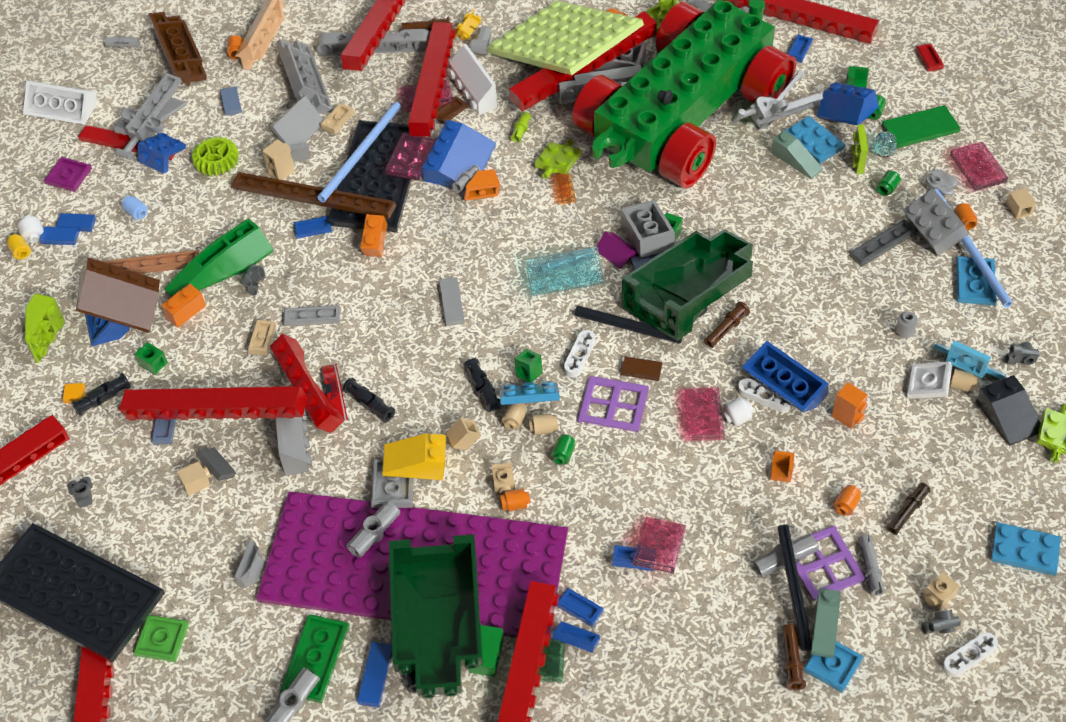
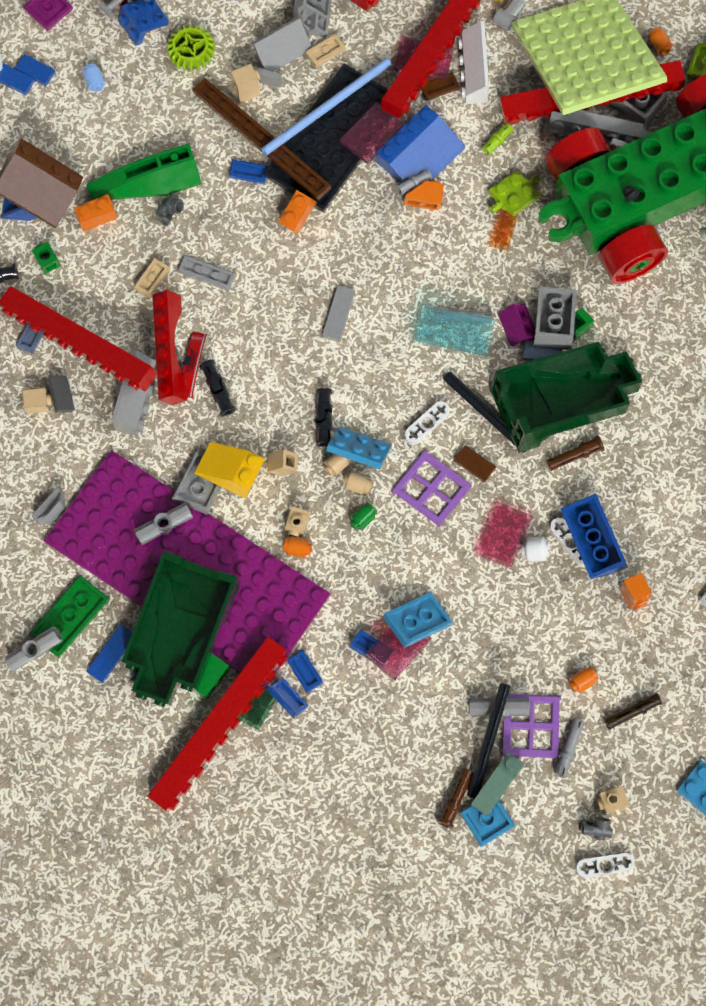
camera: 25 degrees right, 20 degrees up
(156, 263) = (78, 147): nougat tile -> none
(528, 365) = (372, 418): green brick -> none
(664, 511) = (417, 619): none -> dark azure plate
(782, 466) = (544, 621): orange panel -> none

